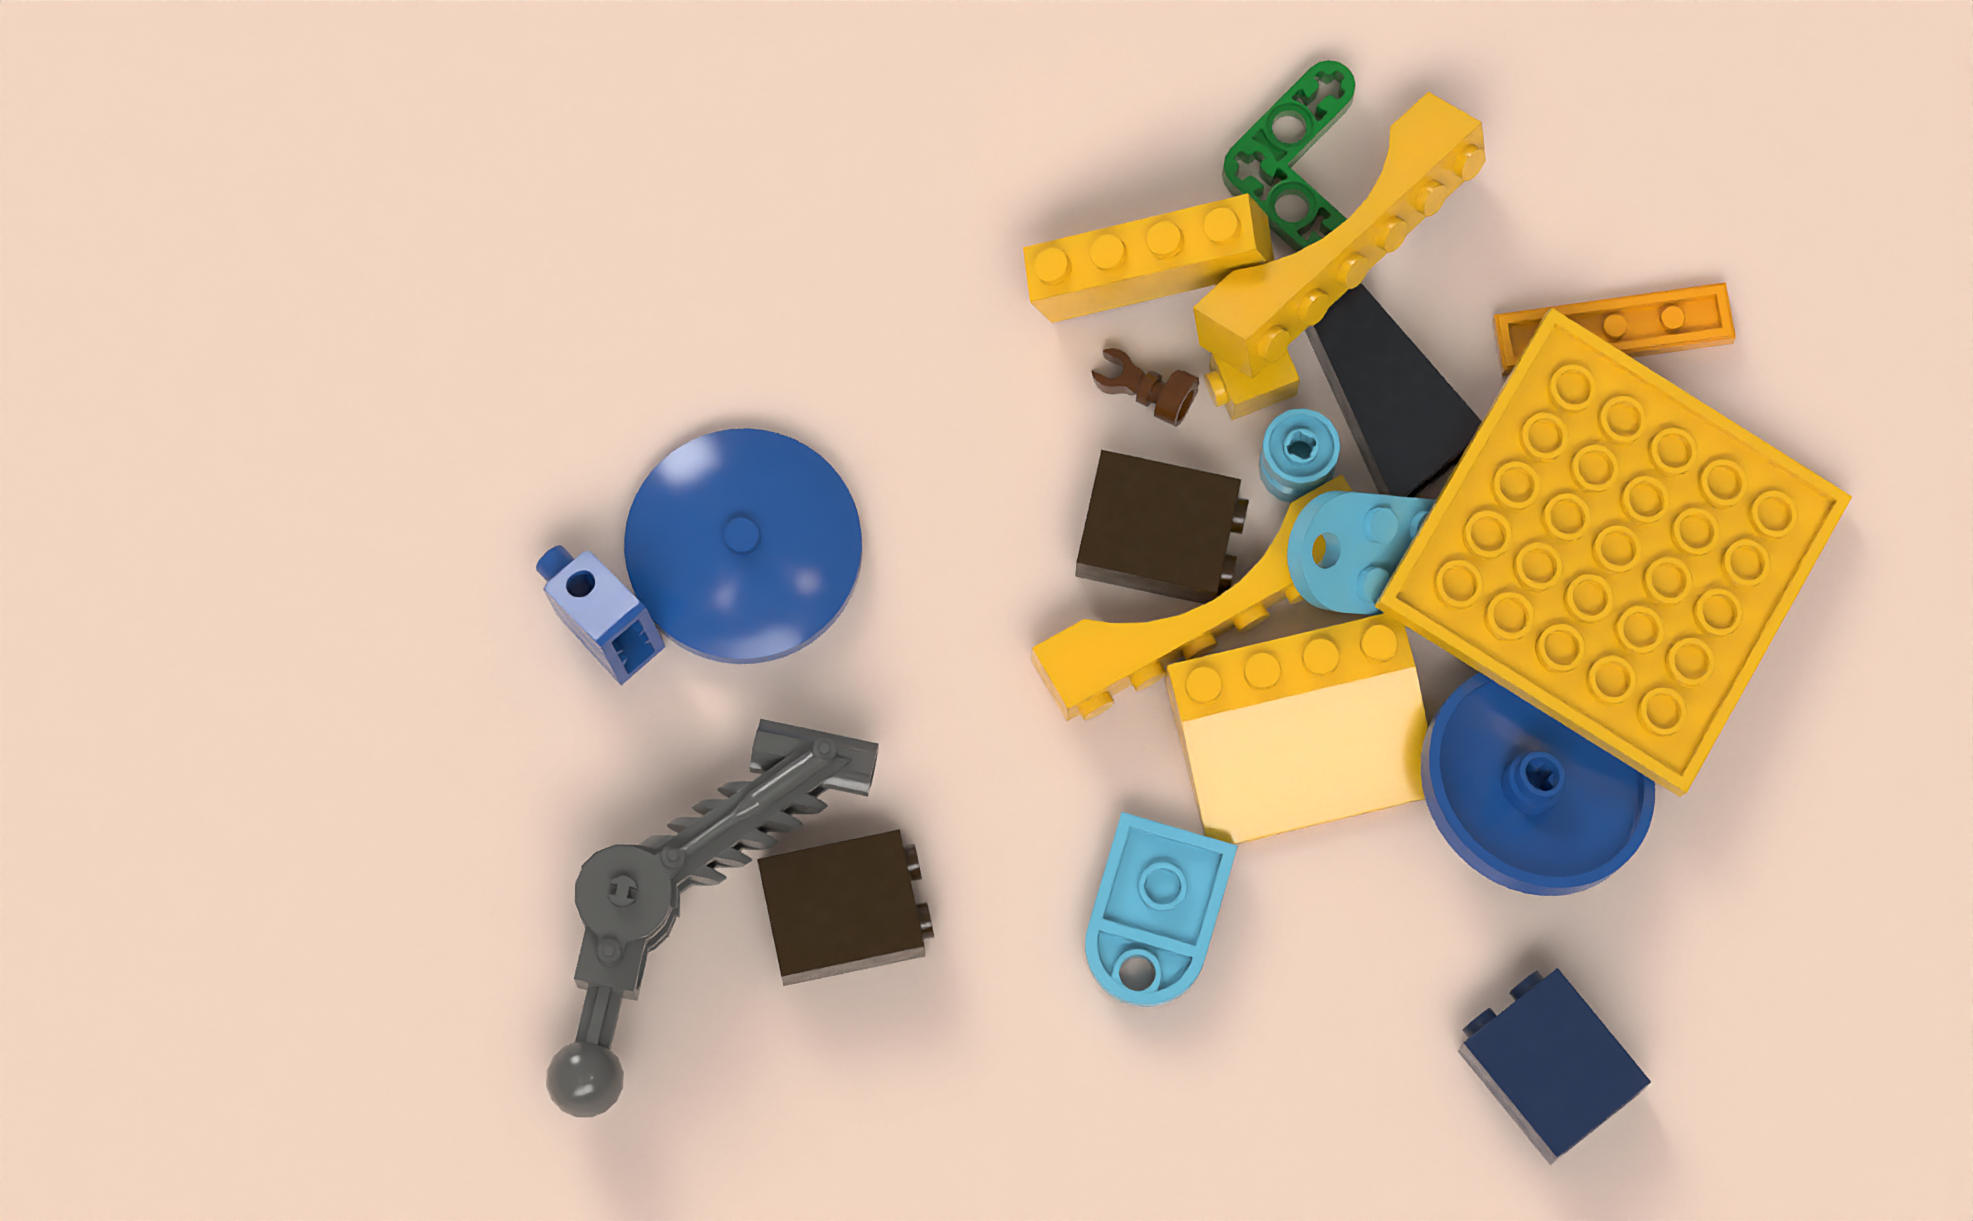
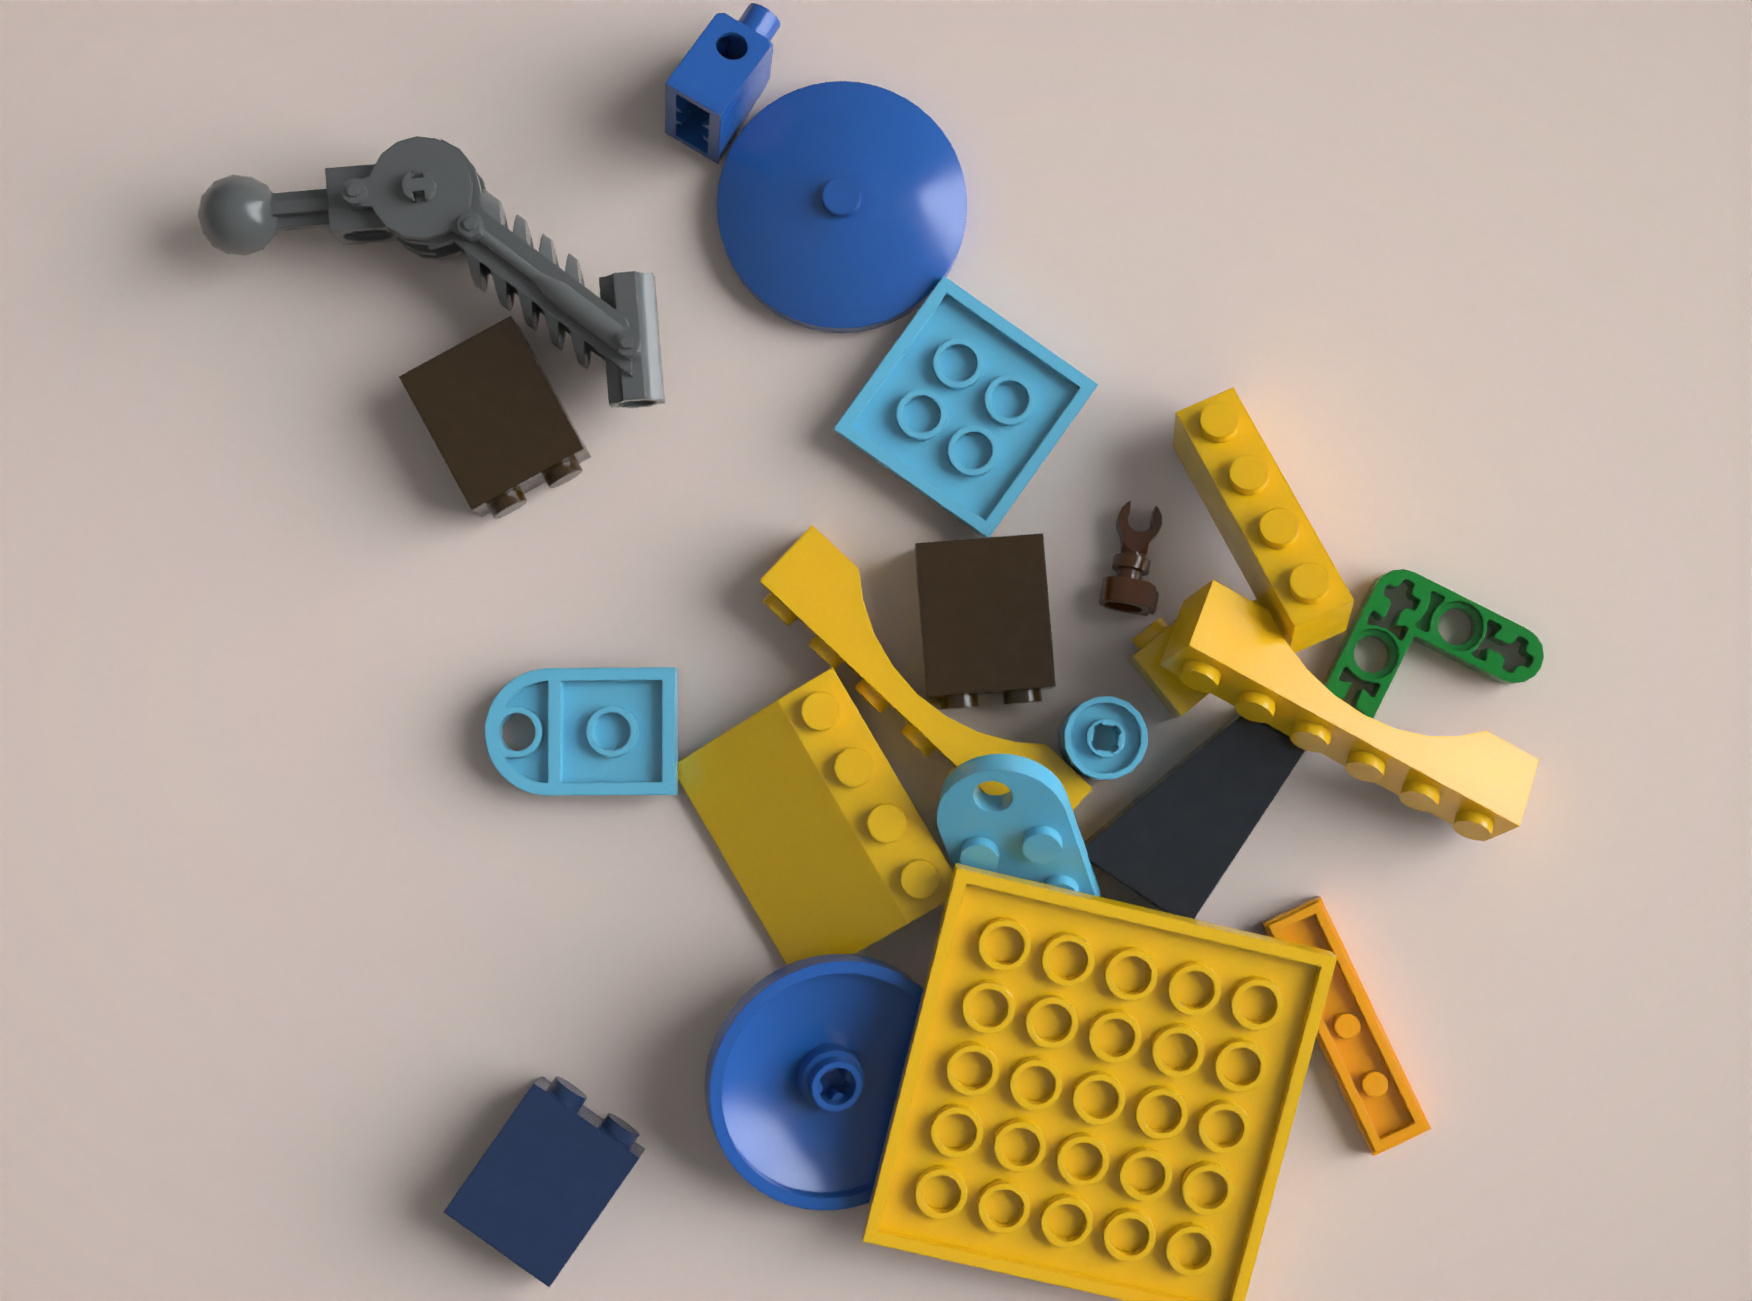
camera: 75 degrees right, 10 degrees up
(963, 489) = (965, 408): none -> medium azure plate

